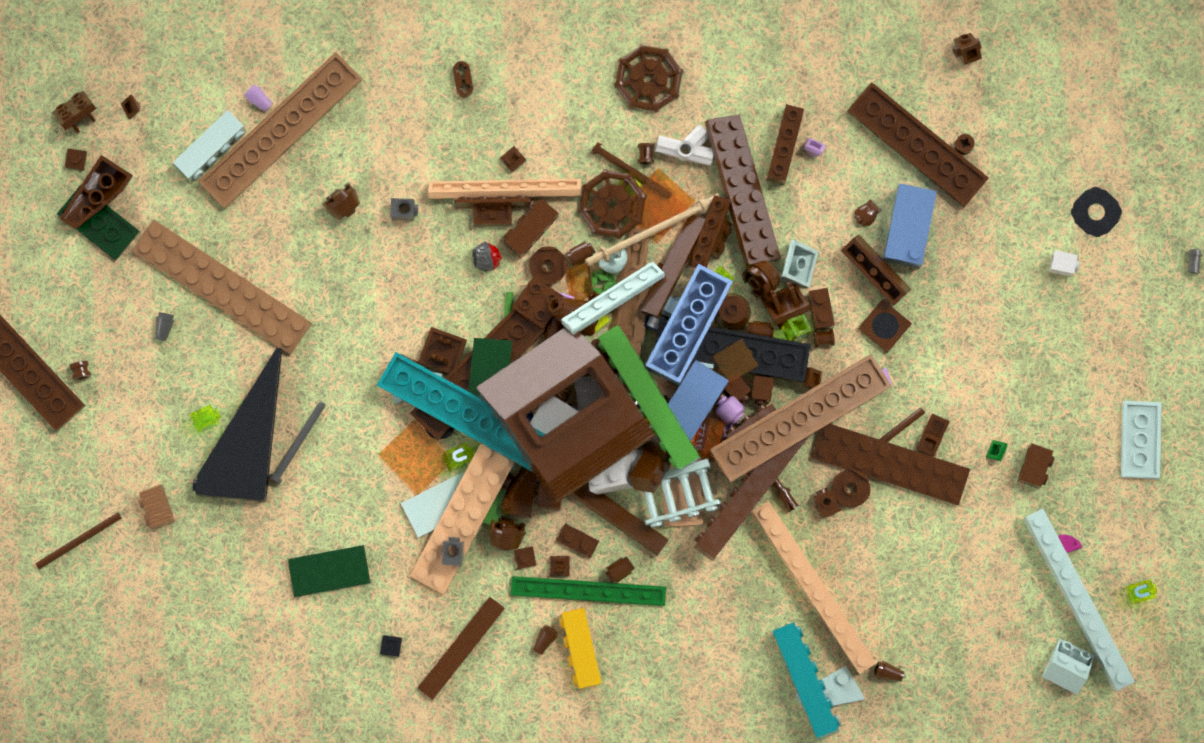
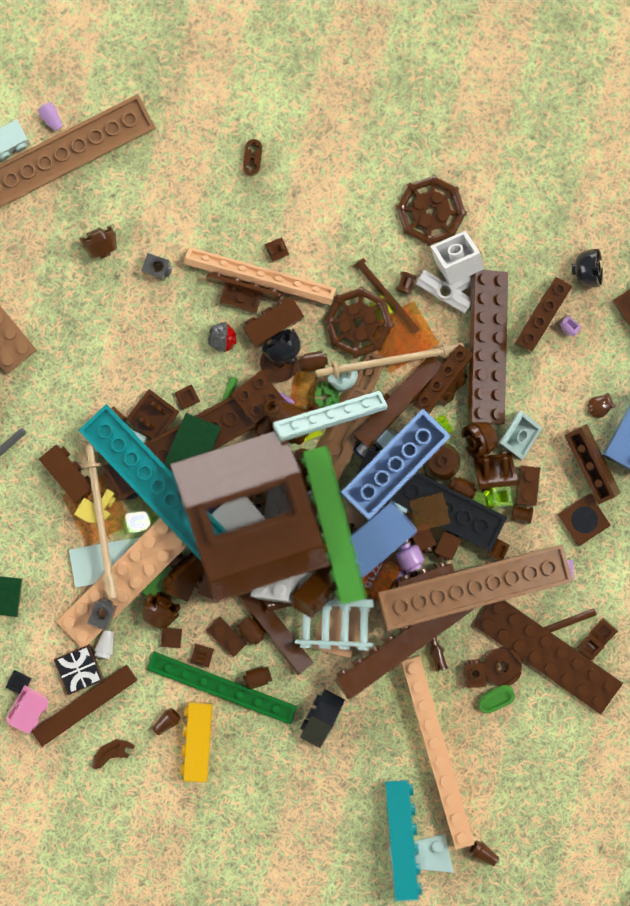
camera: 15 degrees right, 5 degrees up
(378, 430) = (67, 473): none -> reddish brown brick
(407, 667) = (27, 710): none -> bright pink brick
(416, 460) = (87, 510): none -> light yellow brick
(445, 615) = (79, 669): none -> tile
(449, 516) = (108, 578): none -> tan bar
(463, 584) = (104, 647): none -> white cone
(470, 324) = (187, 397): none -> reddish brown tile
(500, 683) = (111, 750): none -> reddish brown piece
(548, 248) = (283, 347): none -> black cylinder
(600, 527) = (251, 631): none -> reddish brown brick
(615, 495) = (272, 605): none -> reddish brown axle
(687, 114) = (457, 257): none -> white brick
(692, 589) = (321, 718): none -> black brick
(814, 87) = (588, 268): none -> black cylinder
(854, 520) = (496, 699): none -> bright green tile

